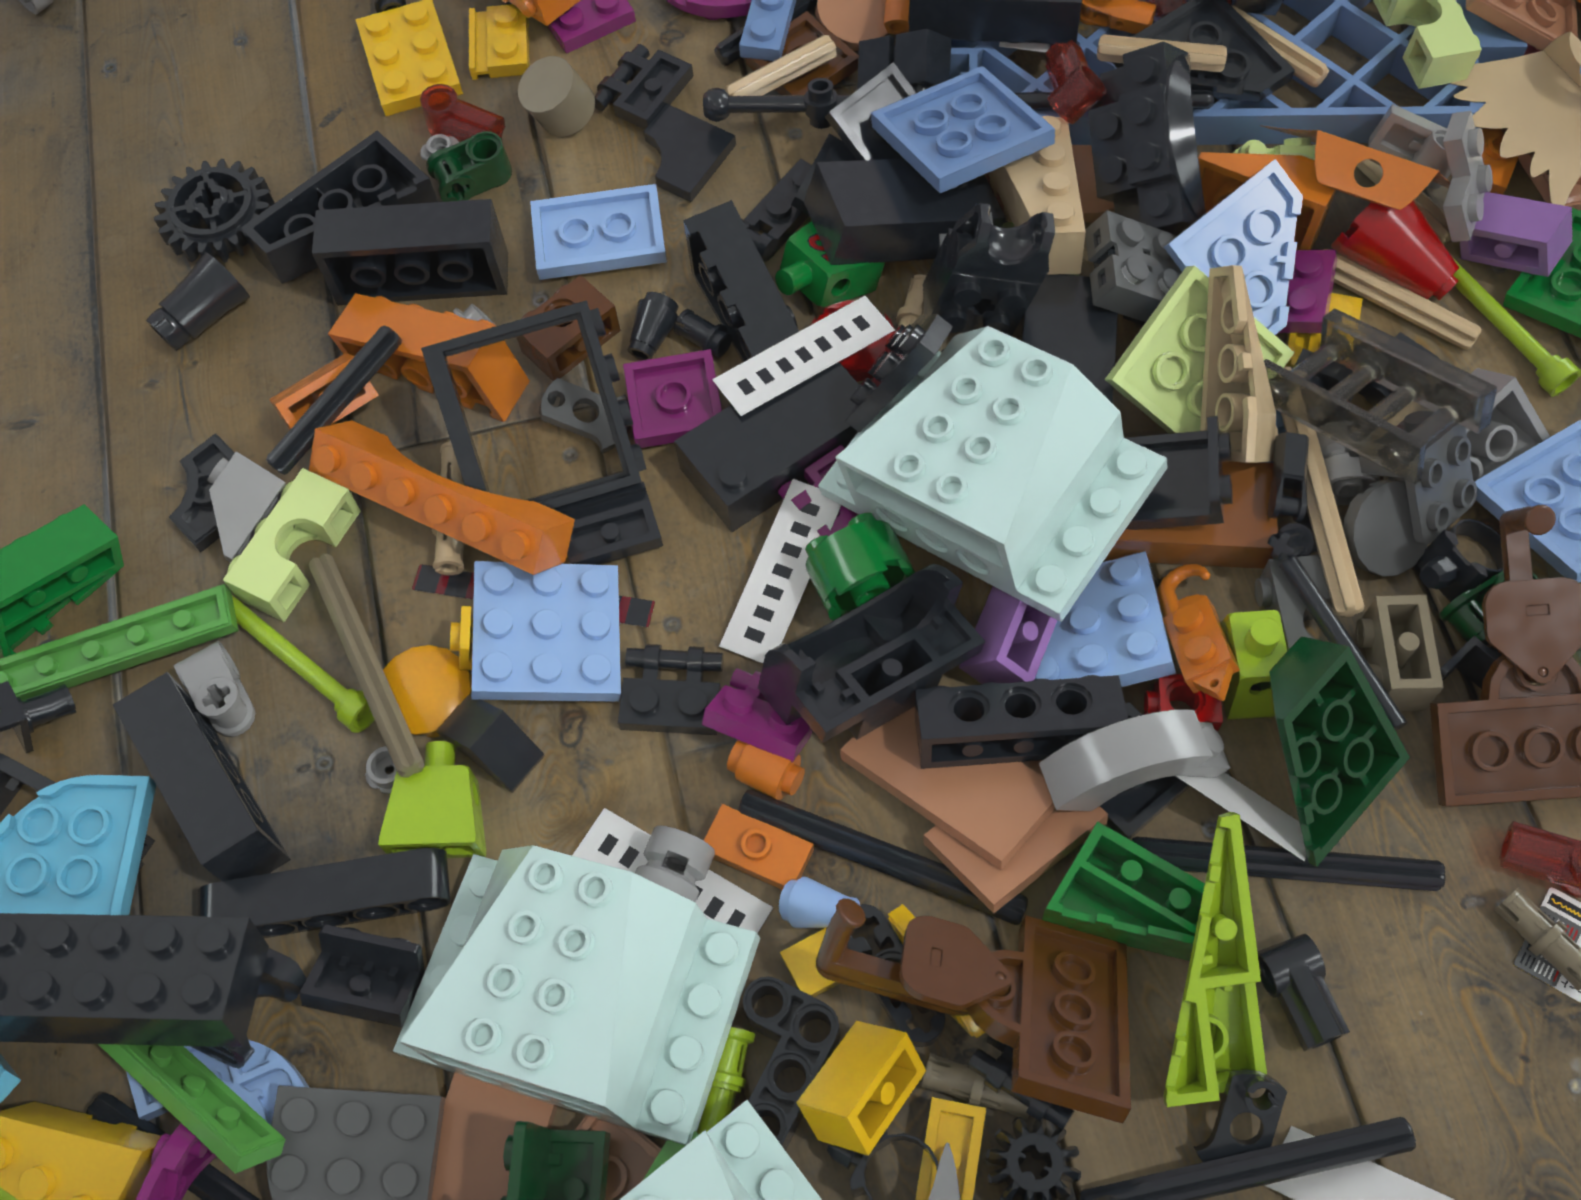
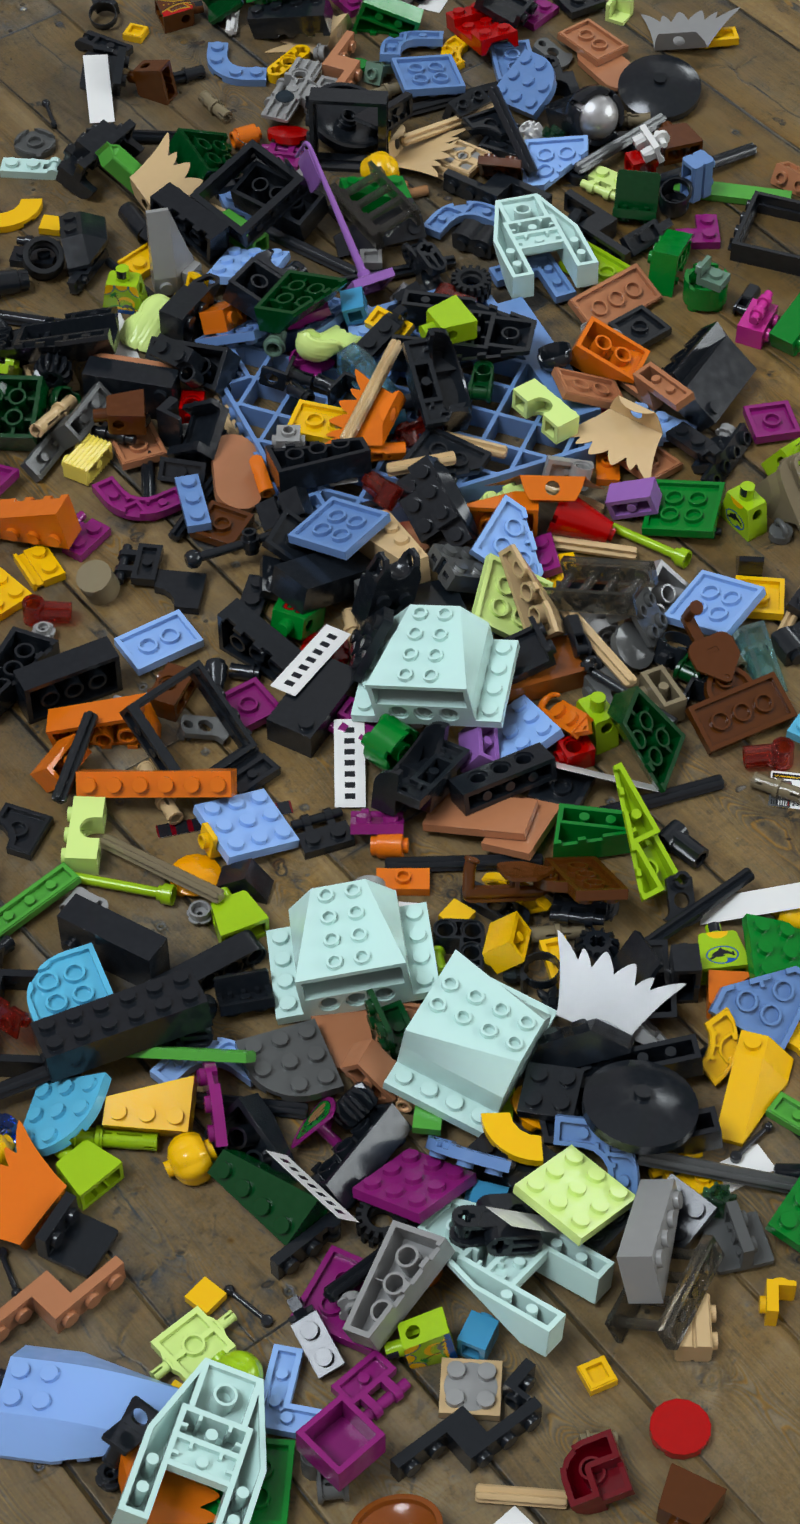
camera: 30 degrees left, 15 degrees down
(240, 500) = (48, 823): light grey slope -> none
(473, 165) = (69, 630): dark green piece -> none
(784, 68) = (216, 534): tan axle -> none
(809, 903) = (444, 889): light blue cone -> none
(1130, 754) = (559, 770): light grey arch -> none
(1469, 176) = (601, 478): light grey plate -> none

